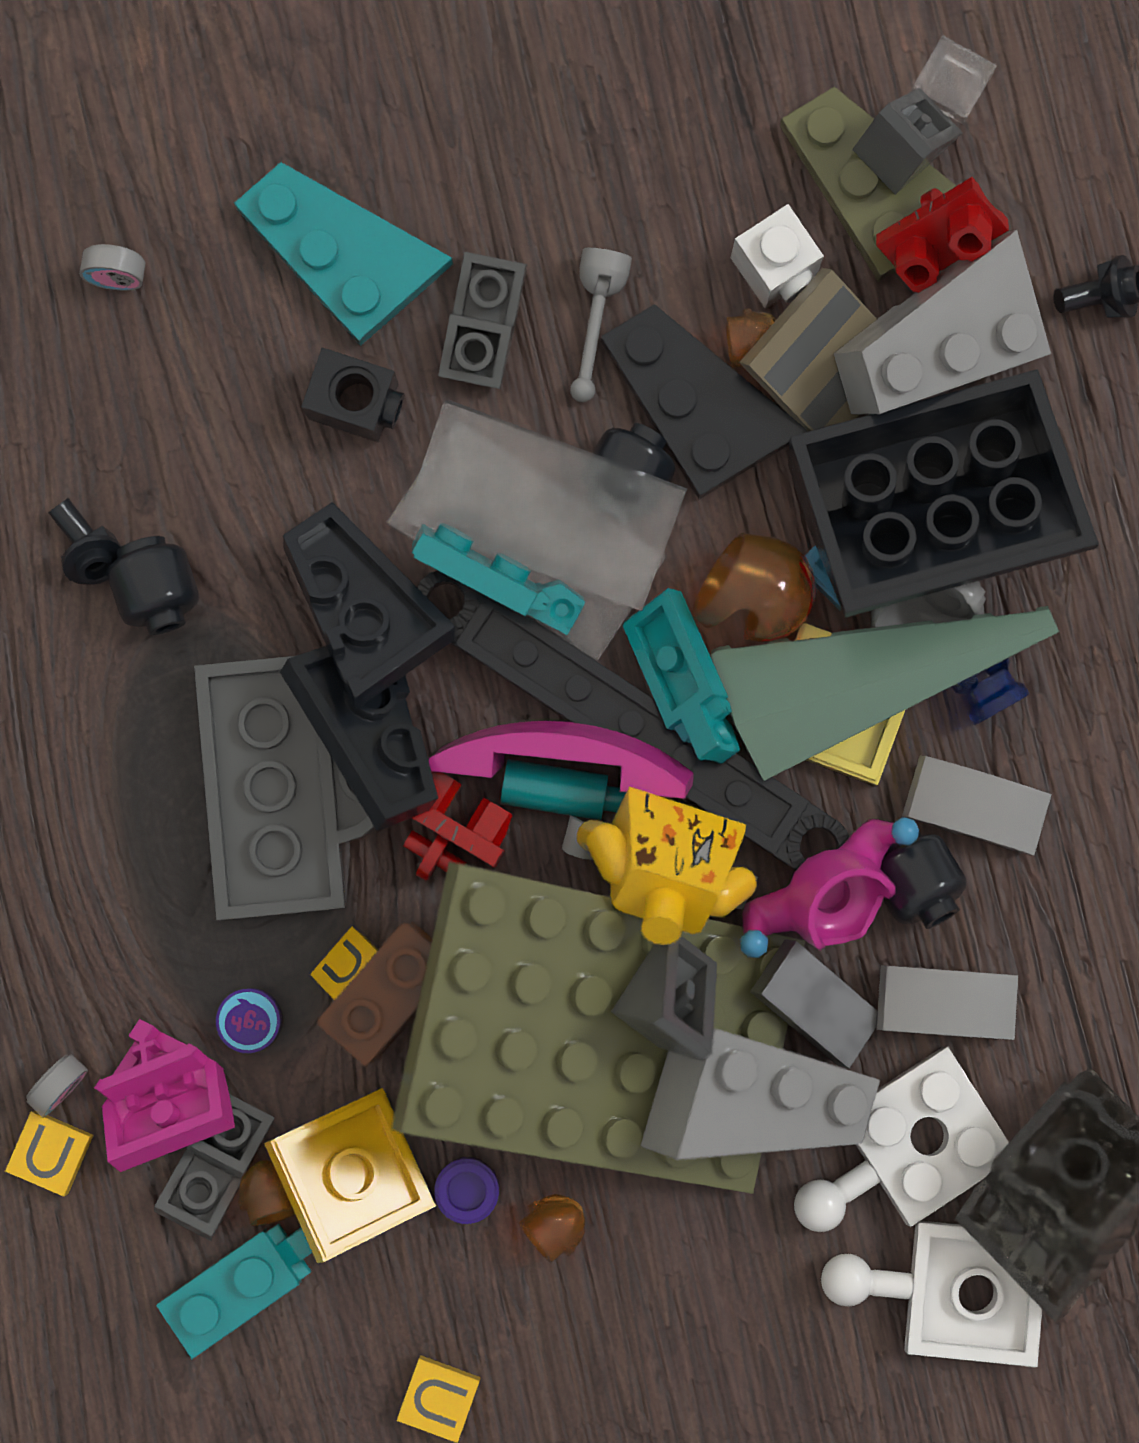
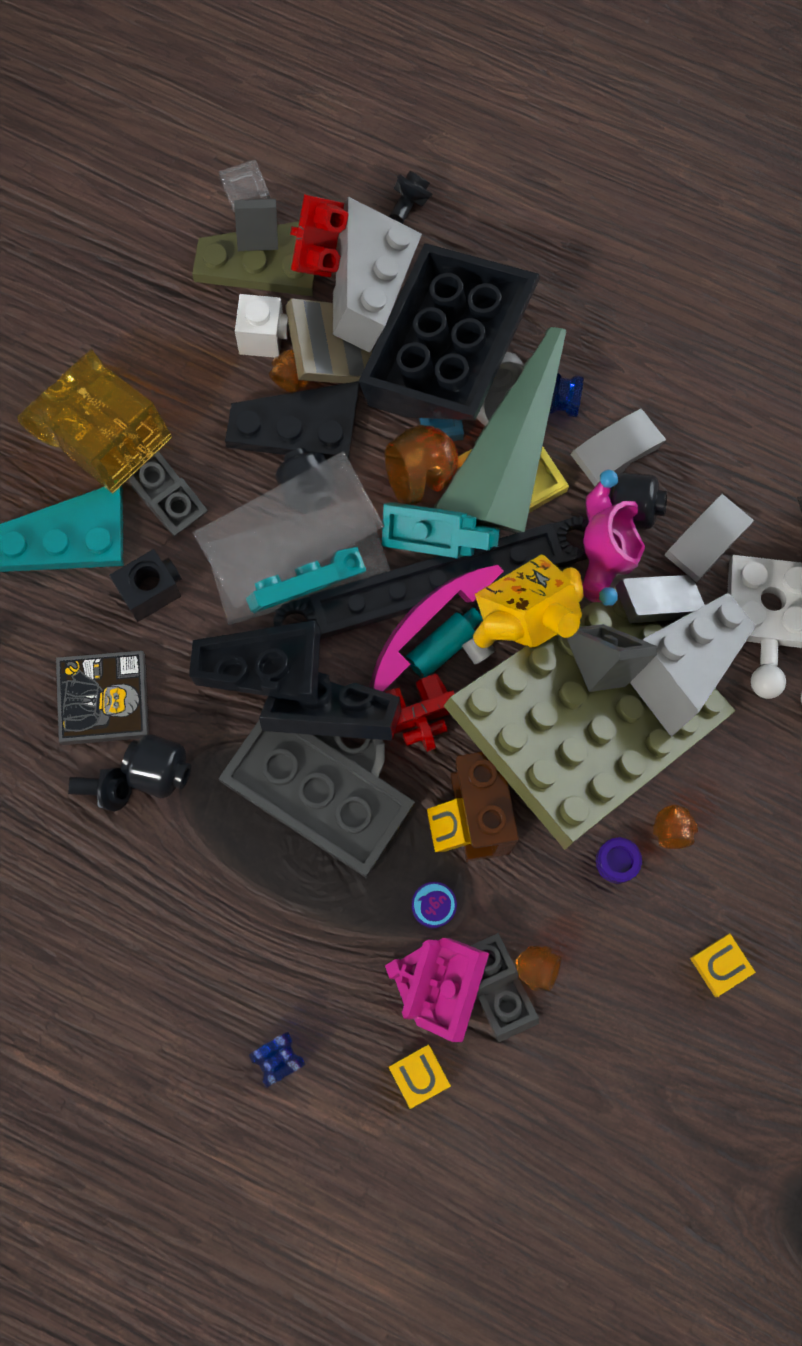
camera: 55 degrees left, 10 degrees down
(56, 1085) = (385, 1039): light grey tile -> none
(186, 456) = (102, 697): none -> tile
(236, 1288) = (577, 1025): teal hinge -> none
(349, 1175) = (563, 914): yellow tile -> none
(497, 172) = (97, 422): none -> clear yellow piece
(603, 275) = (194, 416): light grey hinge -> none

